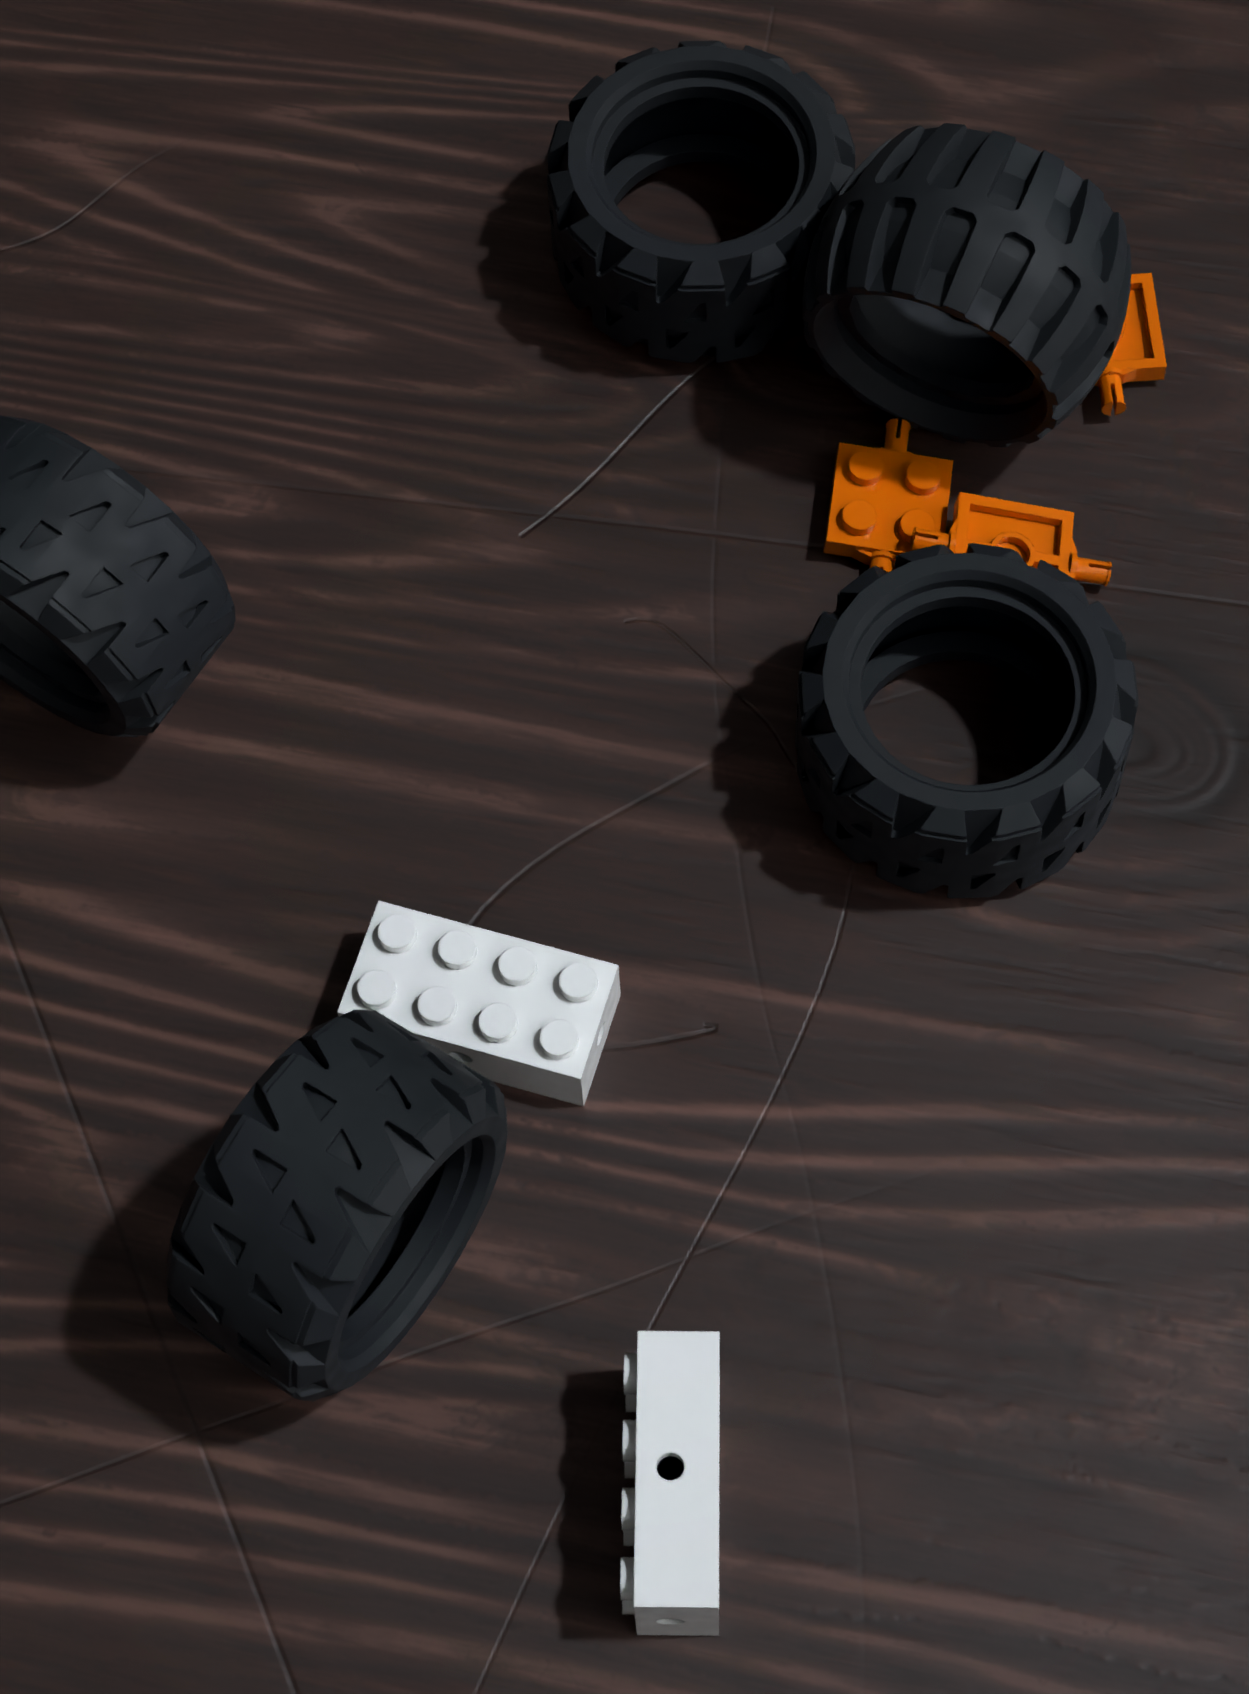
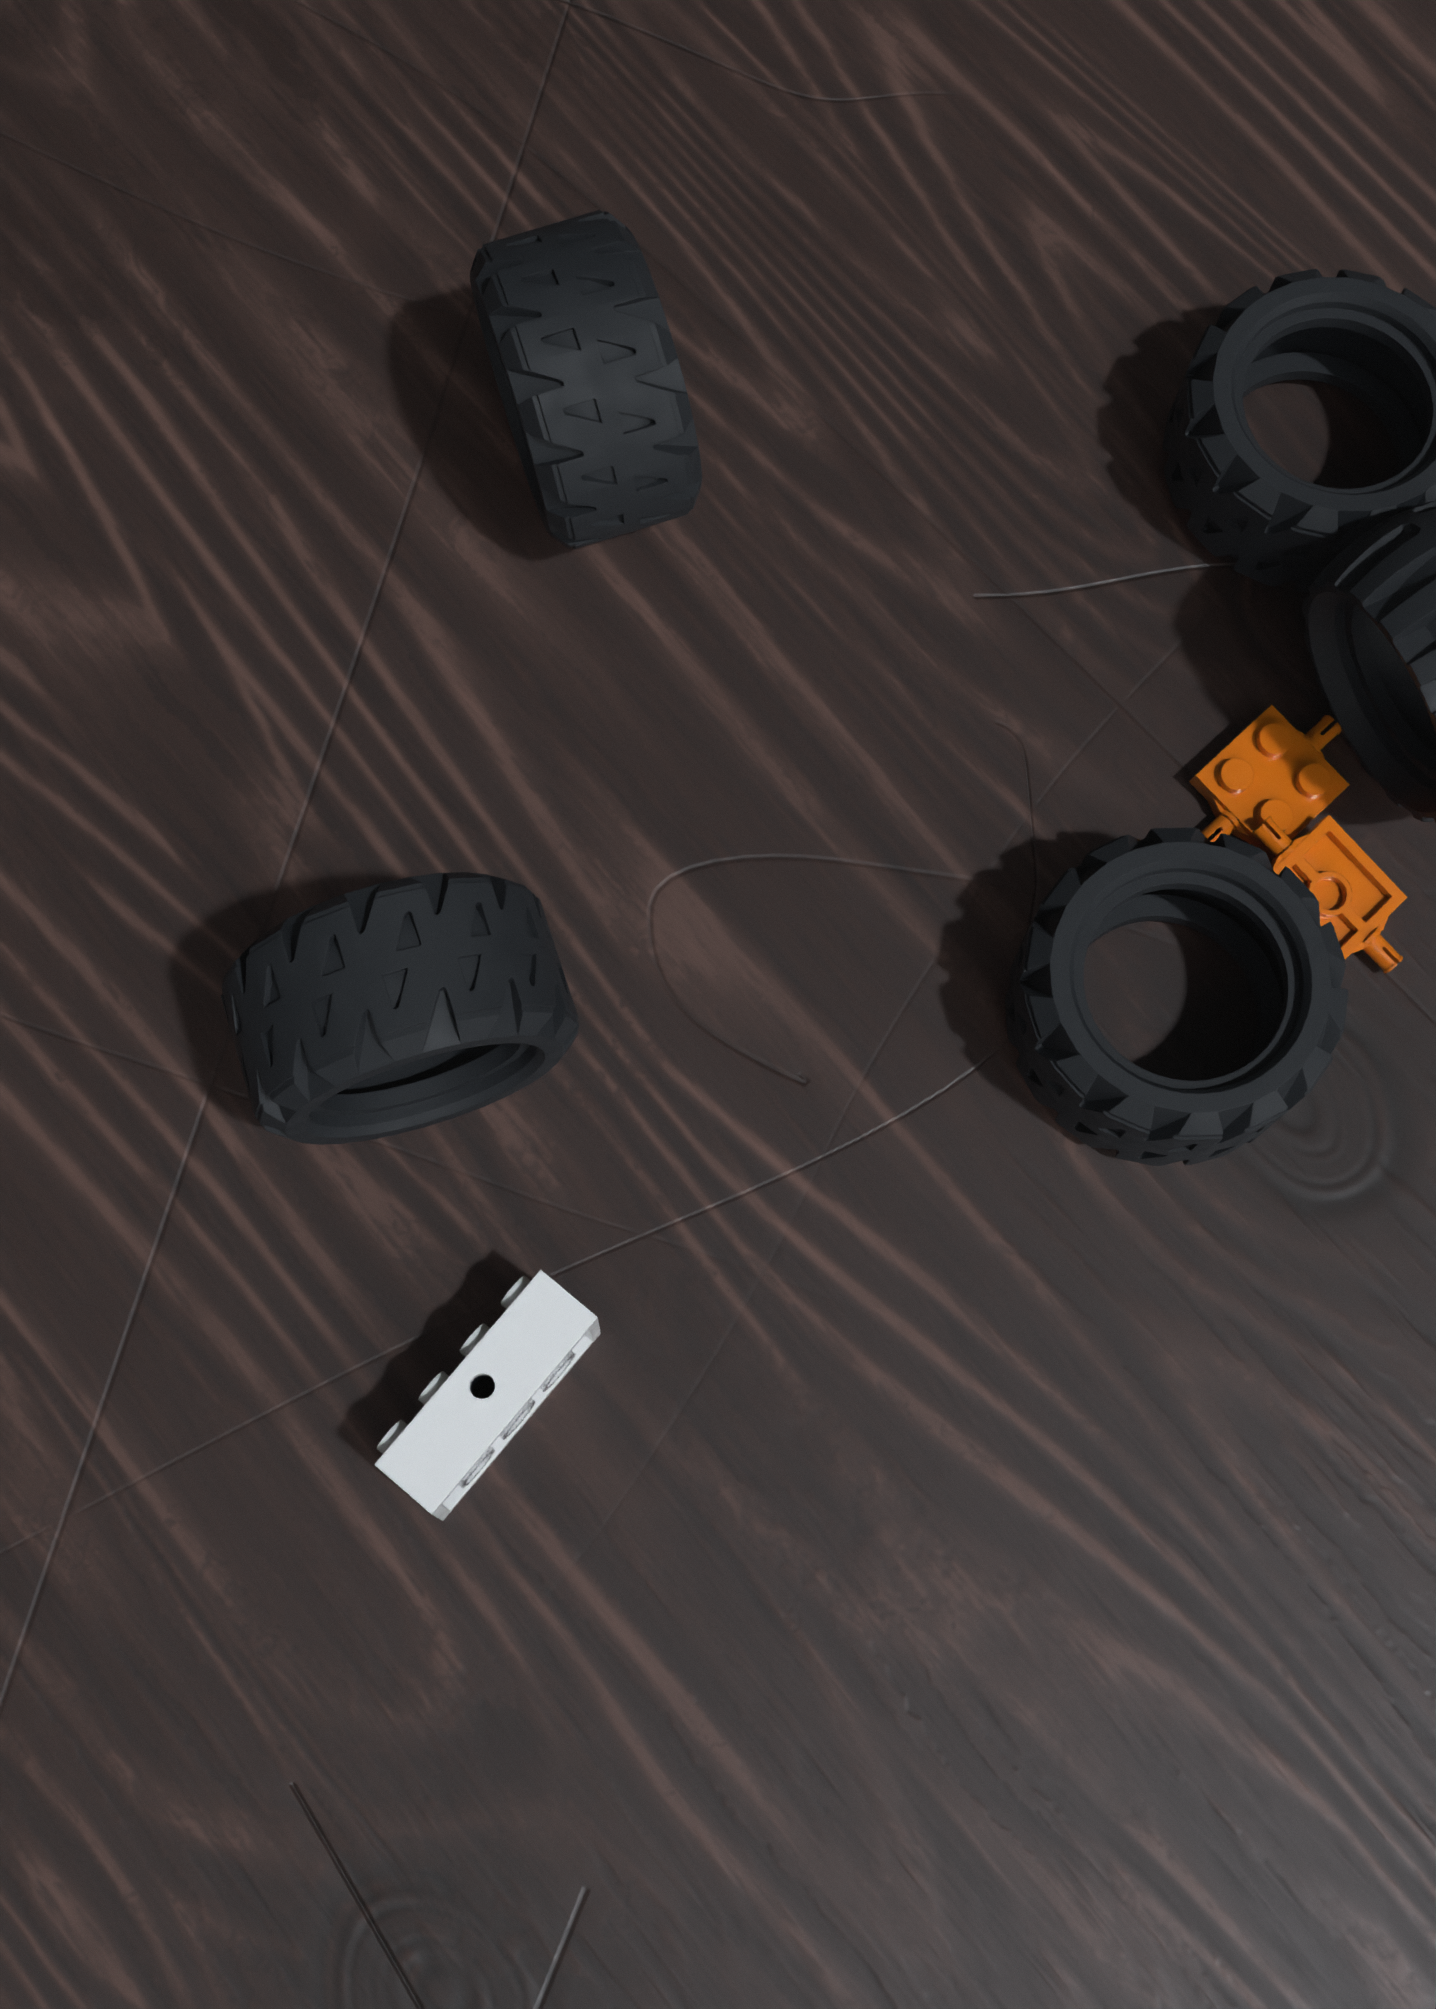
camera: 30 degrees right, 10 degrees up
(488, 999) = (647, 932): white brick -> none

